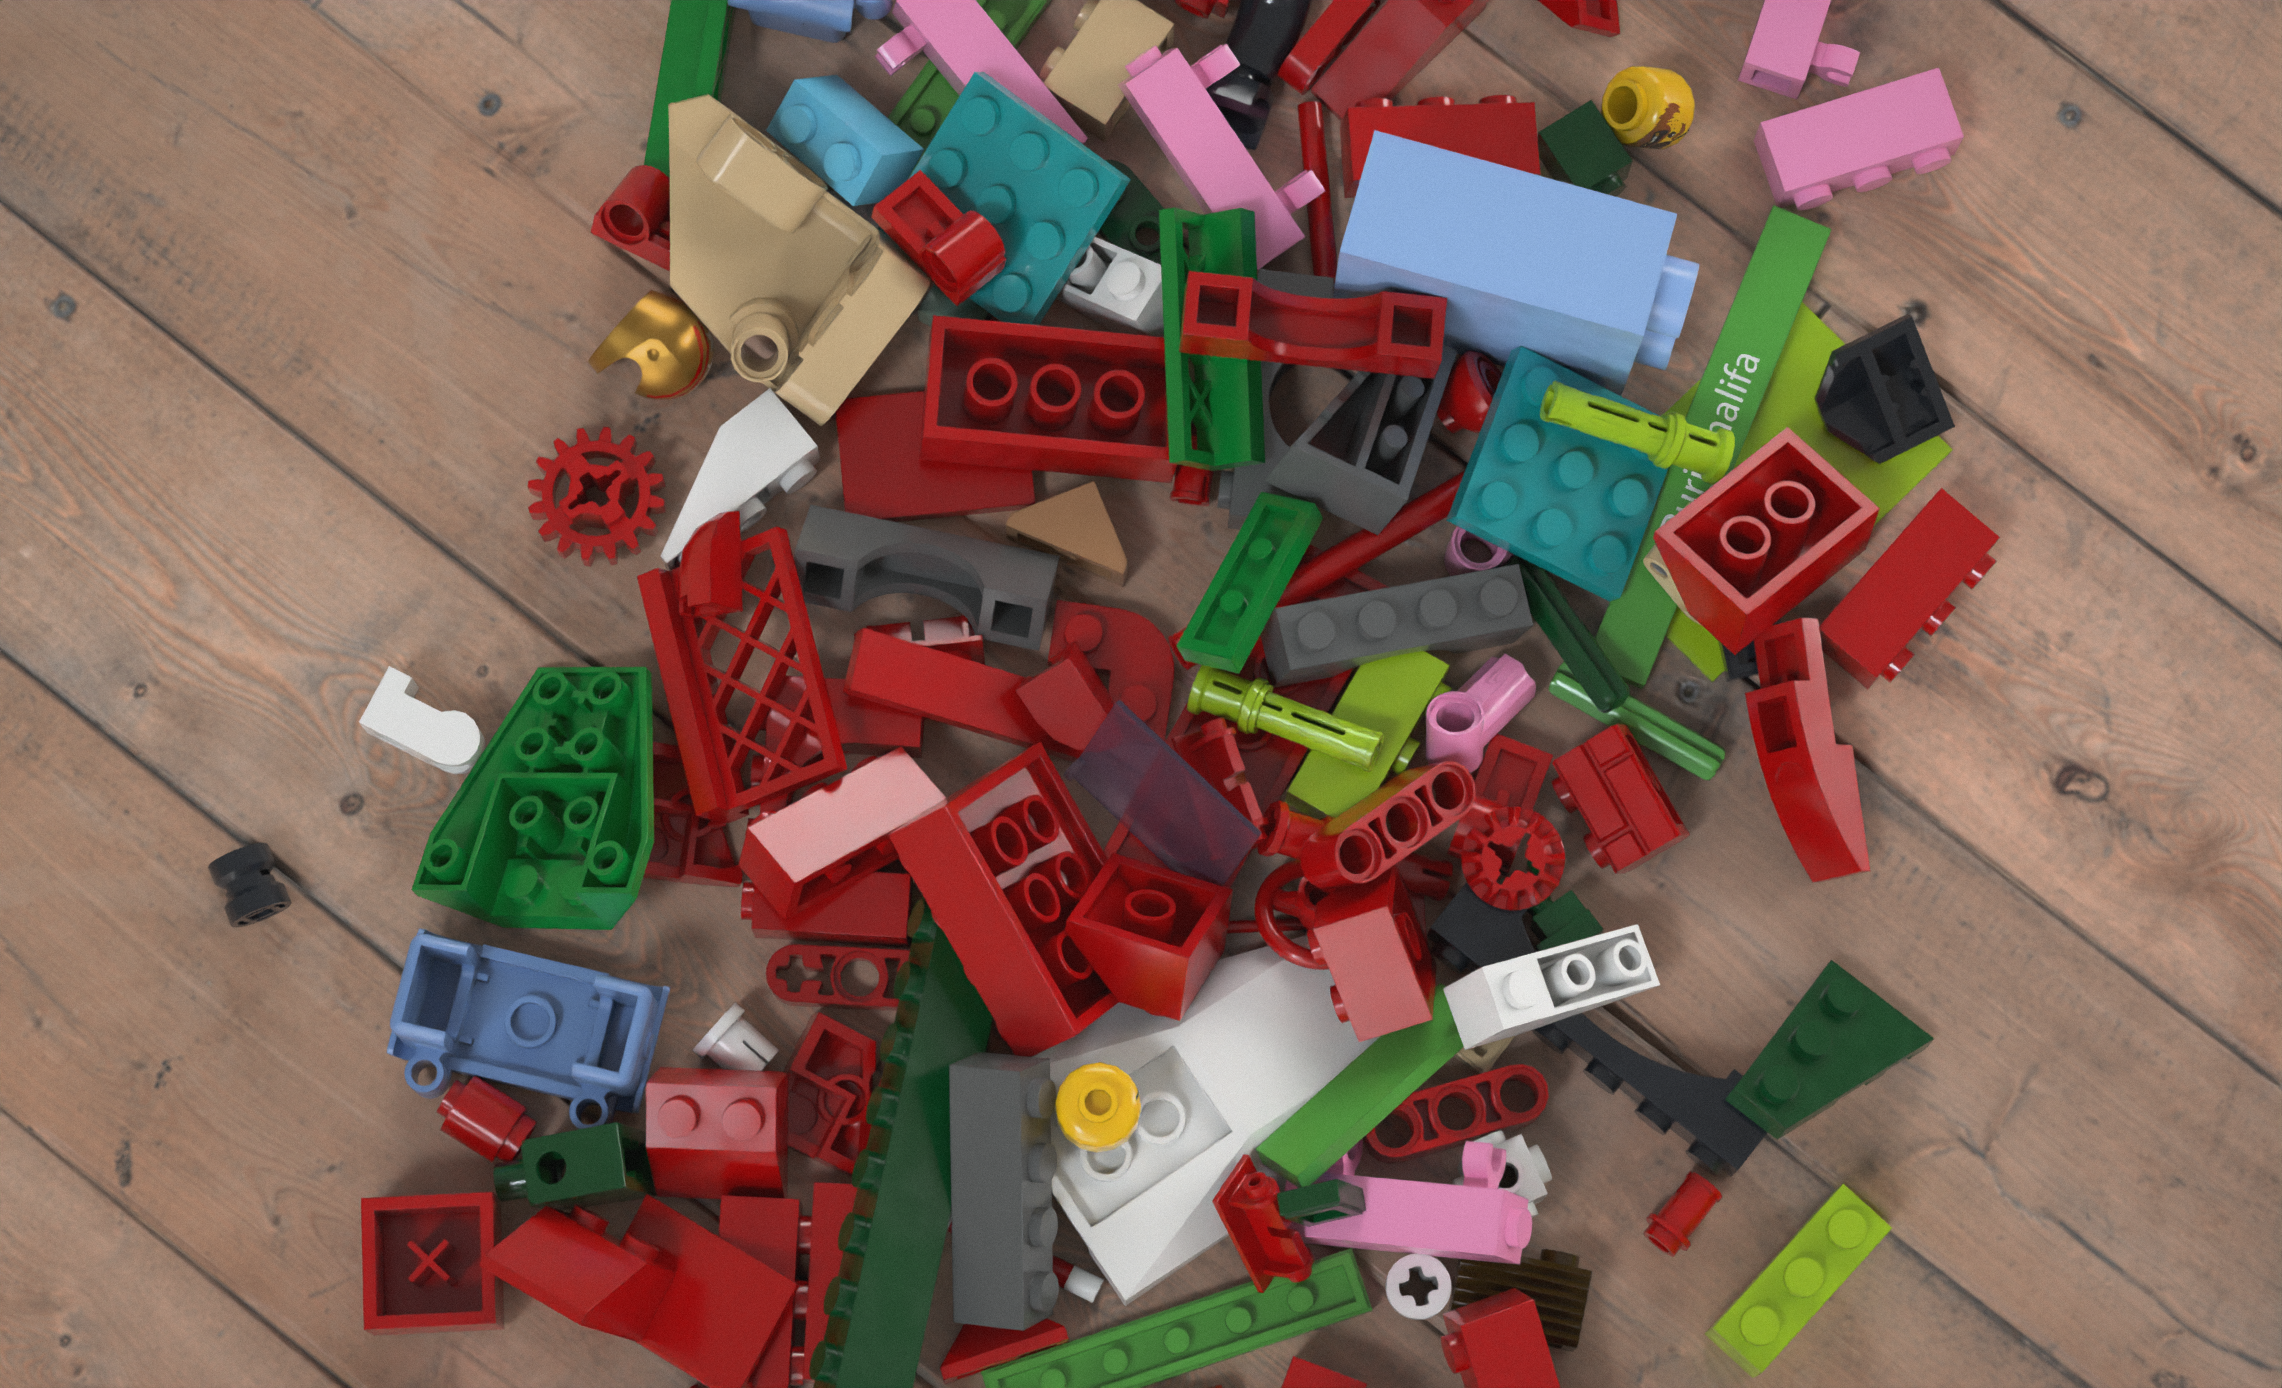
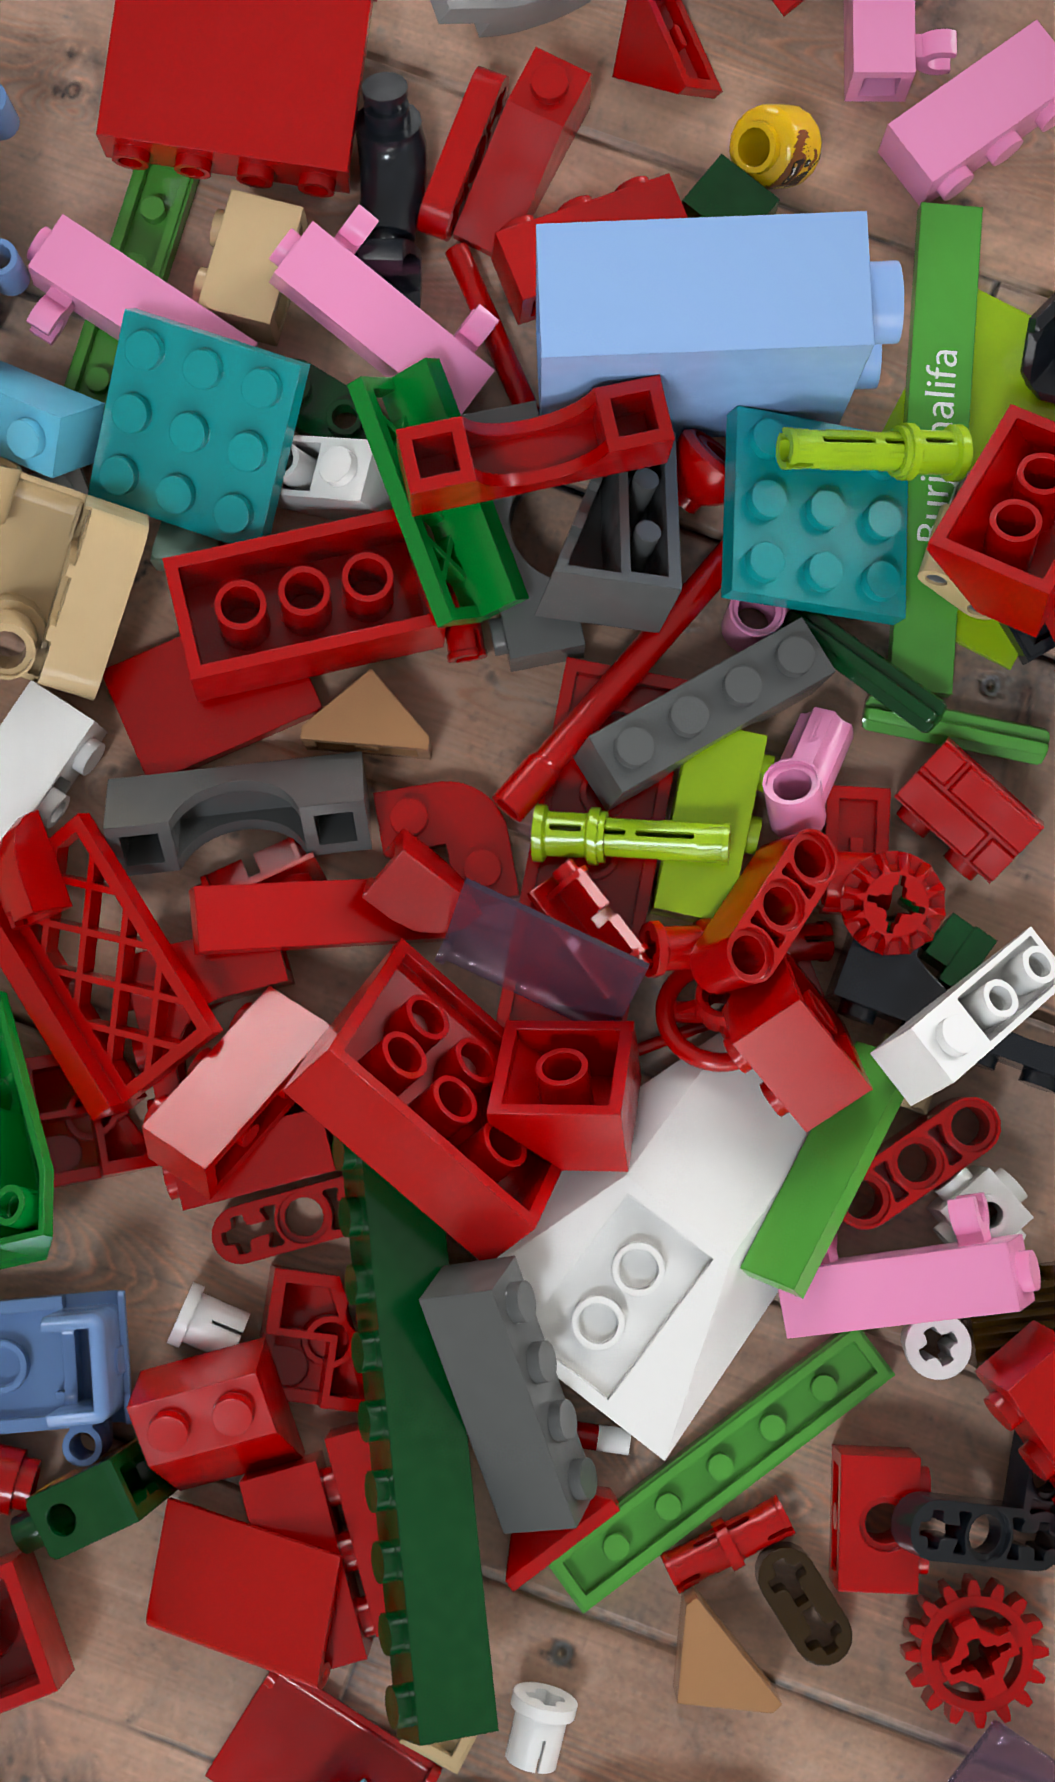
camera: 15 degrees left, 5 degrees up
(583, 1270) = (124, 1612): red slope -> none
(948, 246) = (157, 486): red plate -> none
(1098, 1107) = (578, 1289): yellow head -> none
(1249, 582) = (554, 719): green plate -> none
(1254, 1223) = (769, 1340): red hinge -> none
(1321, 1202) = (825, 1306): dark green tile -> none

